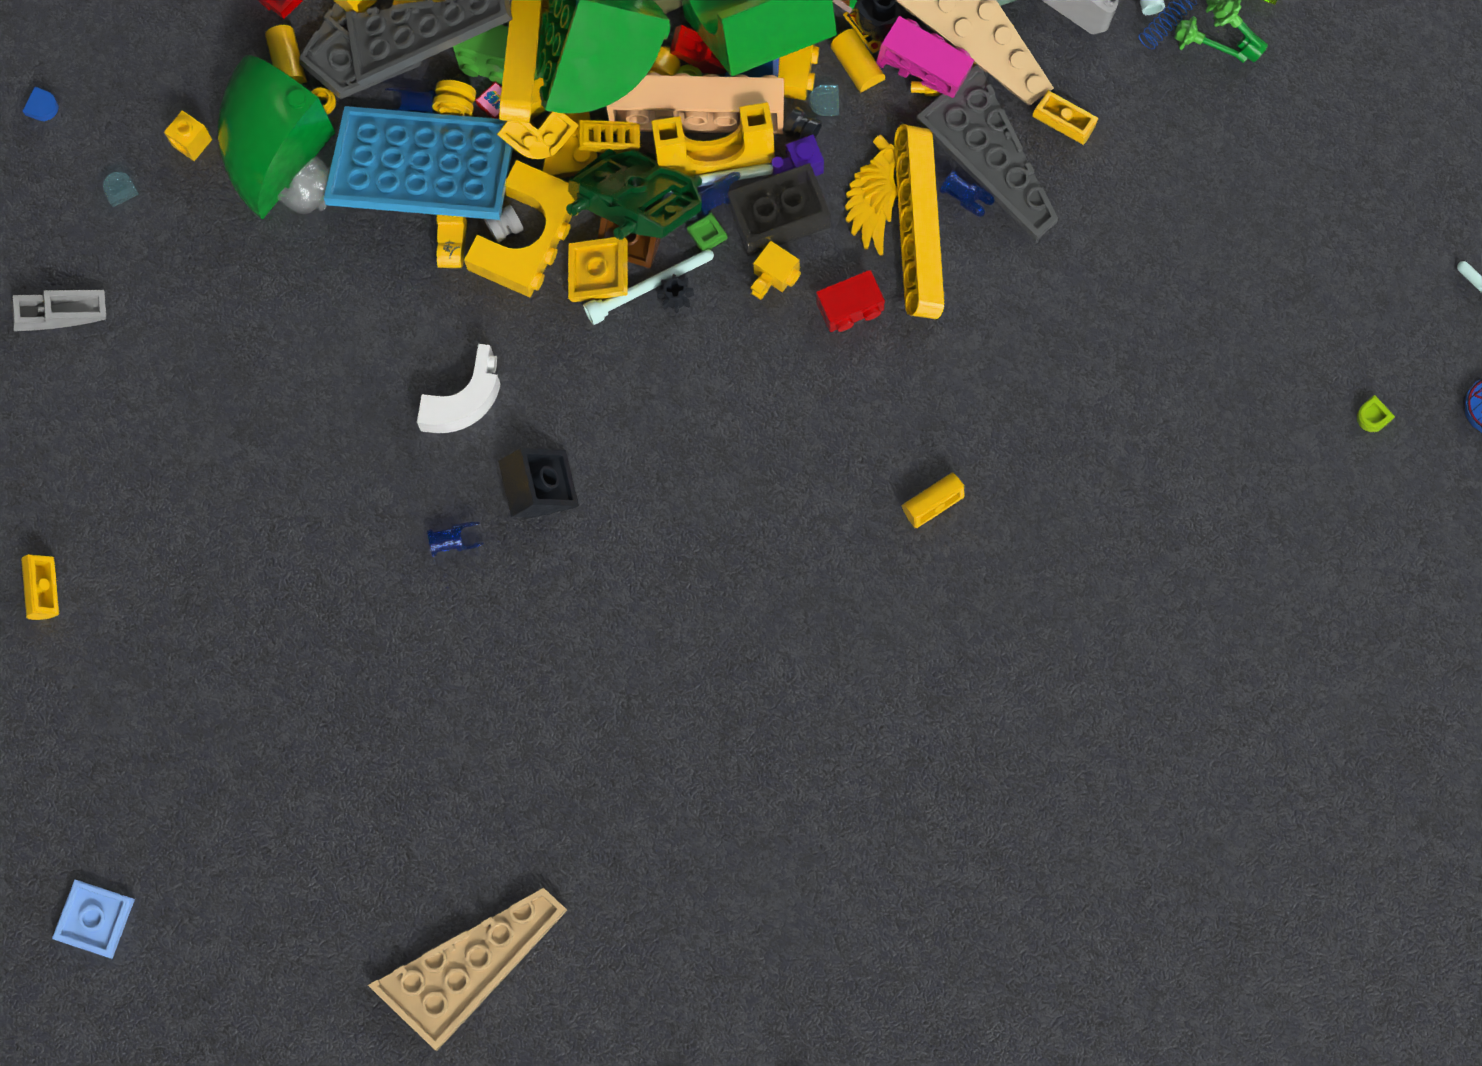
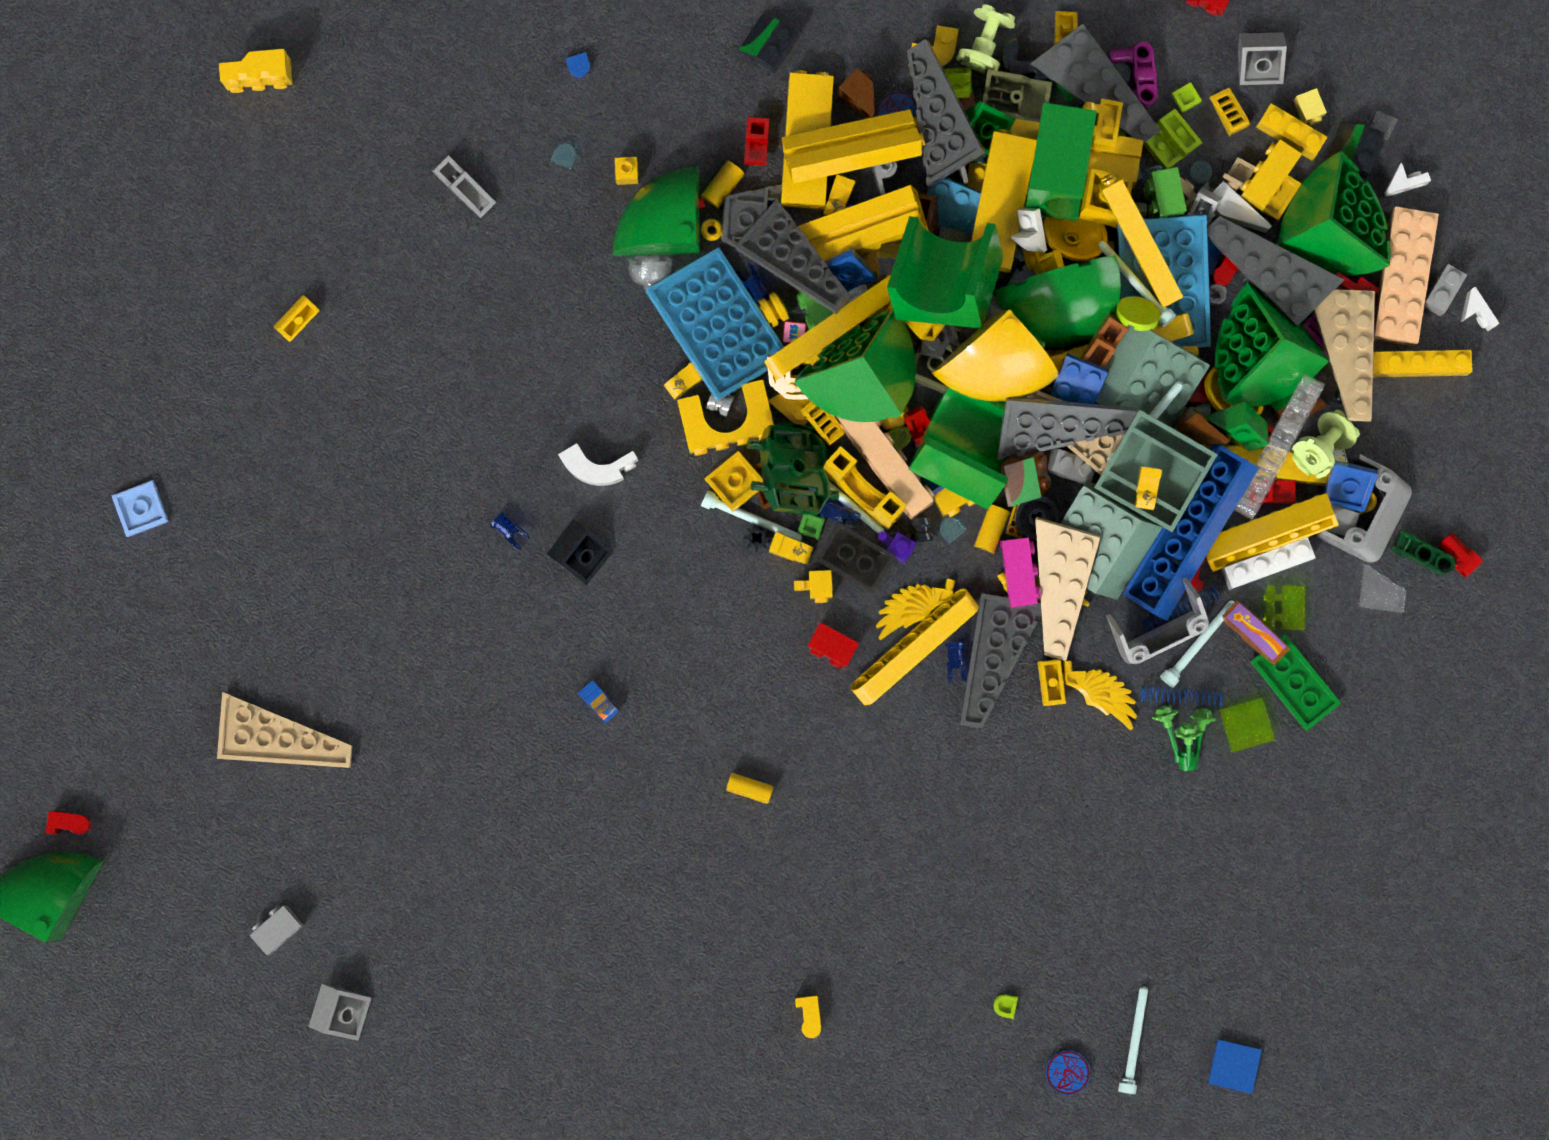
camera: 50 degrees right, 10 degrees up
(713, 269) = (790, 549): none -> yellow leg
(713, 586) = (598, 701): none -> blue leg
(1115, 79) = (1101, 692): none -> yellow animal
(1232, 621) = (811, 1025): none -> yellow leg

